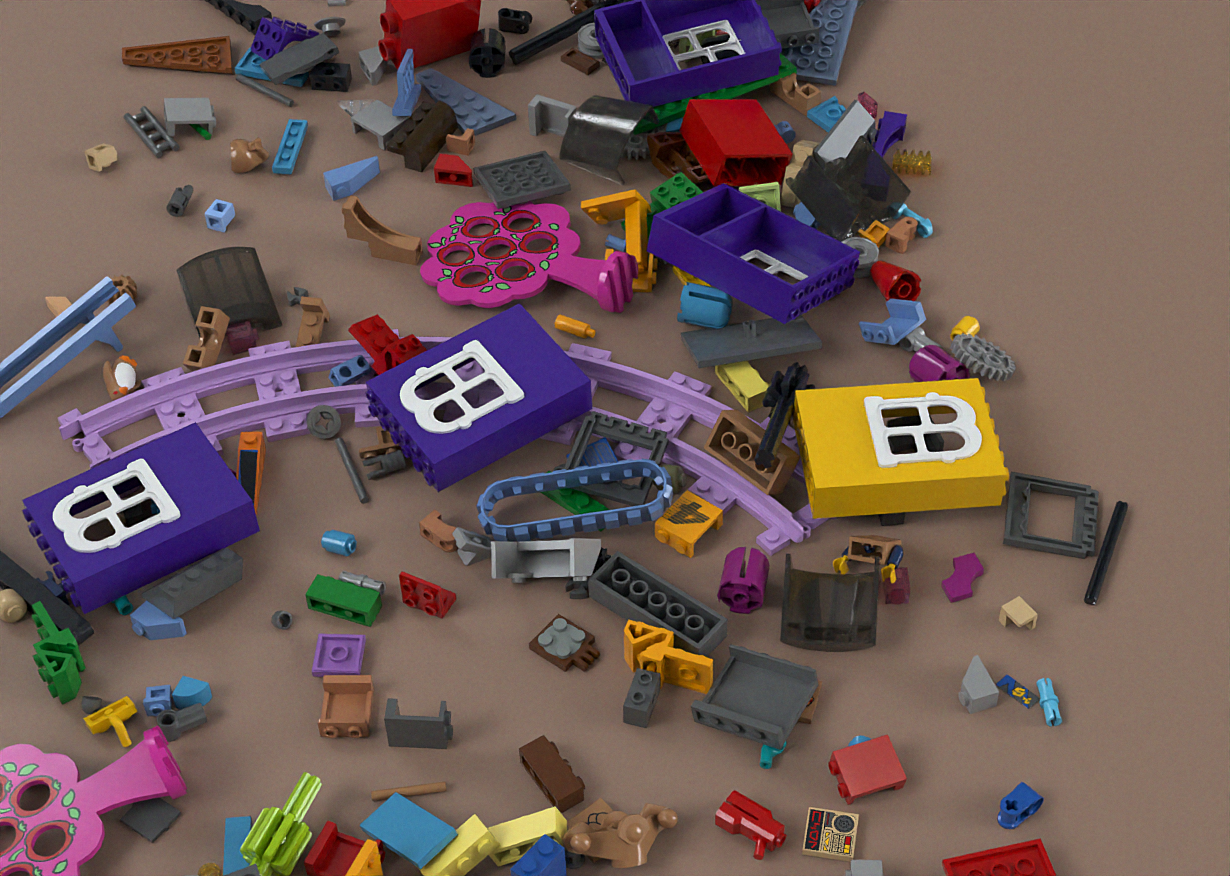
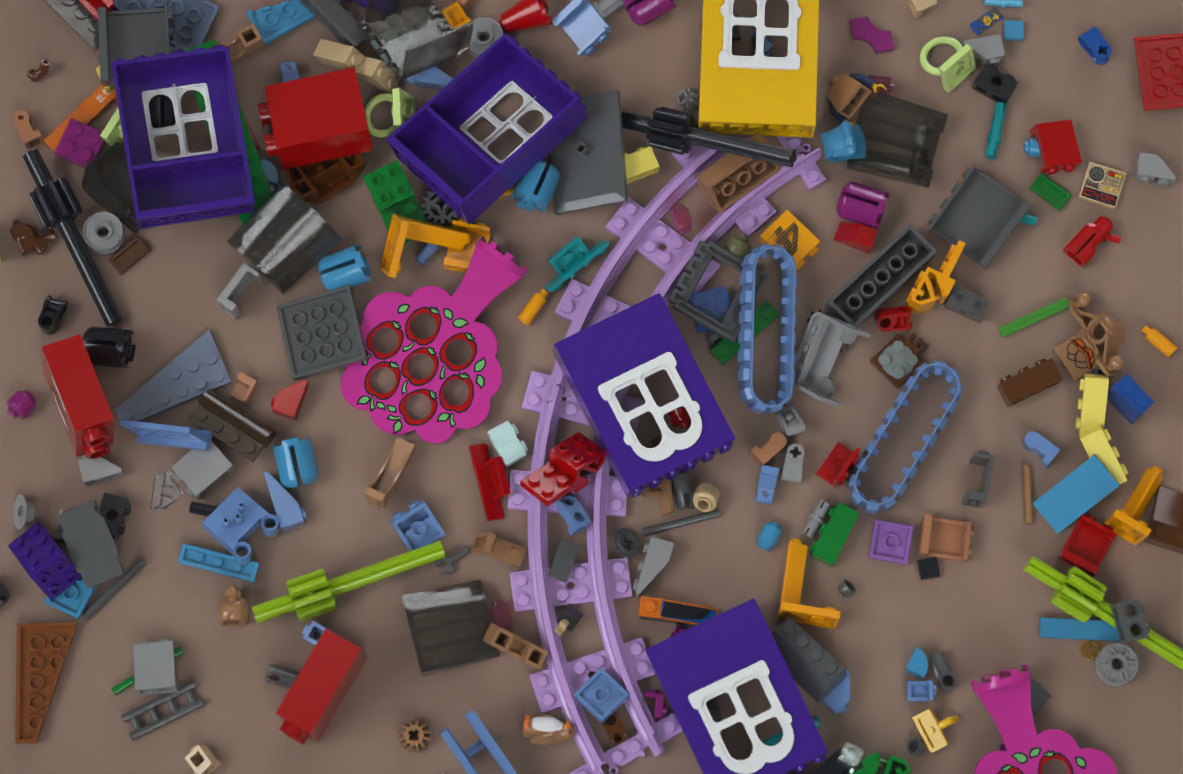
camera: 85 degrees left, 30 degrees up
(84, 634) = (850, 756): none -> clear light blue panel
(124, 433) = (615, 730): none -> reddish brown leg
(154, 413) = (601, 695): none -> medium blue tile
(162, 202) = (320, 687): none -> red brick
(239, 385) = (568, 619): none -> pearl dark grey piece
(260, 203) = (314, 594): none -> lime axle
(277, 561) = (792, 588): none -> light orange piece
(300, 372) = (563, 560): none -> dark grey tile
(302, 448) = (656, 560): none -> light grey slope
(309, 697) = (928, 568): none -> black tile
(325, 145) = (235, 522): none -> medium blue piece
(332, 267) = (416, 525): none -> medium blue plate
(378, 480) = (706, 497): none -> tan head
(389, 177) = (305, 460): none -> dark azure cylinder
(389, 311) = (491, 481): none -> red bracket
(399, 534) = (766, 484): none -> medium blue leg
(413, 607) = (952, 377): none -> medium blue piece
(423, 553) = (793, 467): none -> light grey piece
(425, 321) = (507, 444): none -> light aqua brick
(468, 797) = (1041, 446): none -> medium blue leg
(587, 182) = (344, 268): none -> dark azure cylinder
(609, 626) = (895, 320): none -> red piece
(632, 346) = (571, 259): none -> teal bracket
(637, 773) = (1034, 317): none -> bright green axle
(687, 412) = (681, 219): none -> clear pink brick
(706, 586) = (856, 236): none -> red slope
(808, 778) = (1049, 192): none -> green tile
(816, 561) = (844, 143): none -> dark azure piece
(873, 709) = (994, 137): none -> teal pin
(936, 689) = (984, 86): none -> black brick
(943, 652) = (956, 68): none -> yellowish green tile
(1013, 717) = (1013, 30): none -> dark azure tile

